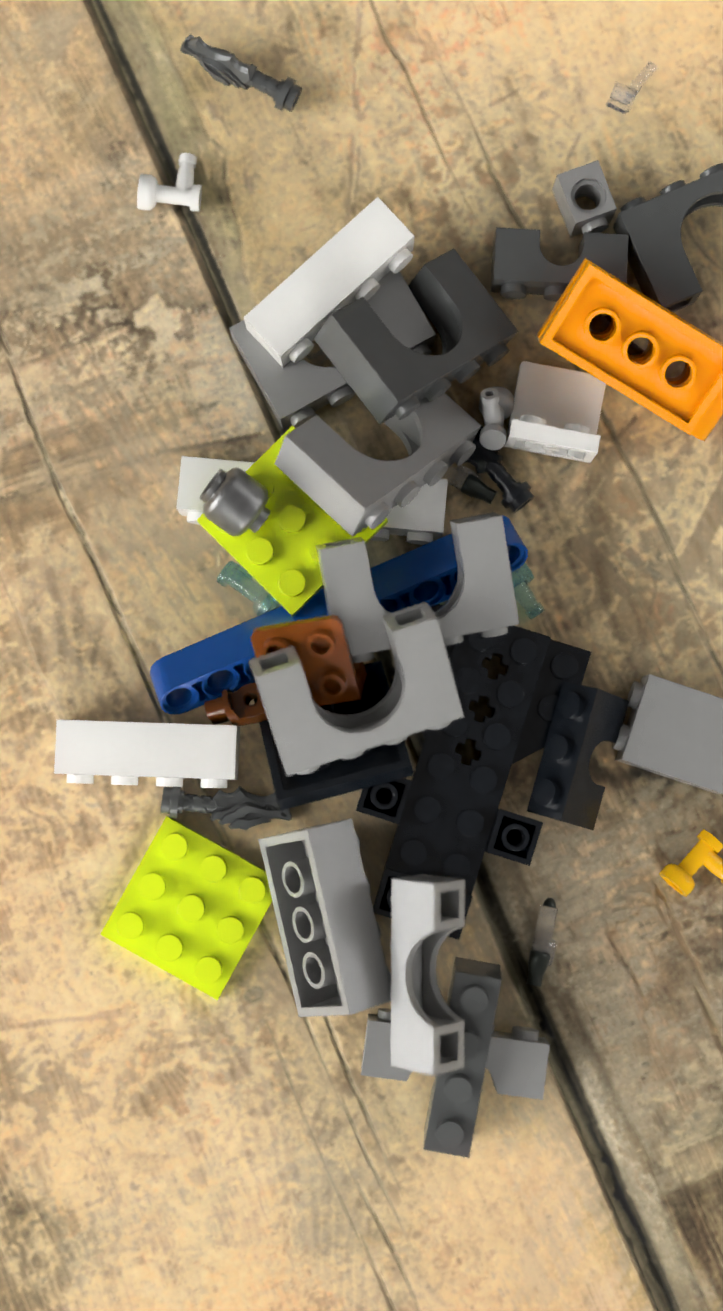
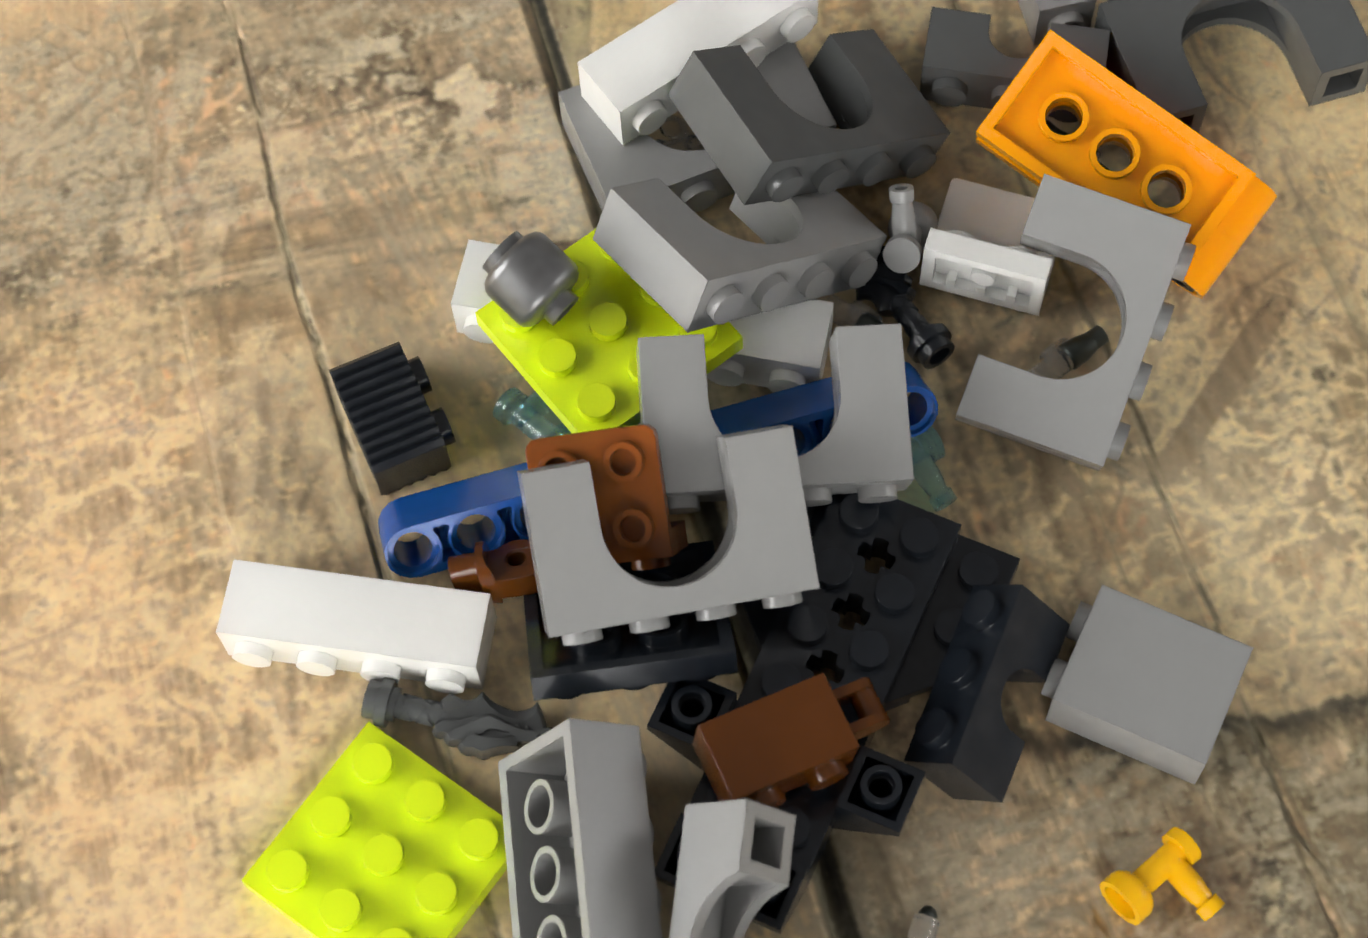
camera: 10 degrees right, 20 degrees down
(146, 593) = (392, 417): none -> black brick
(451, 819) = (787, 740): none -> reddish brown brick
(605, 497) = (1069, 354): none -> piece
(627, 544) = (1137, 259): none -> light grey arch

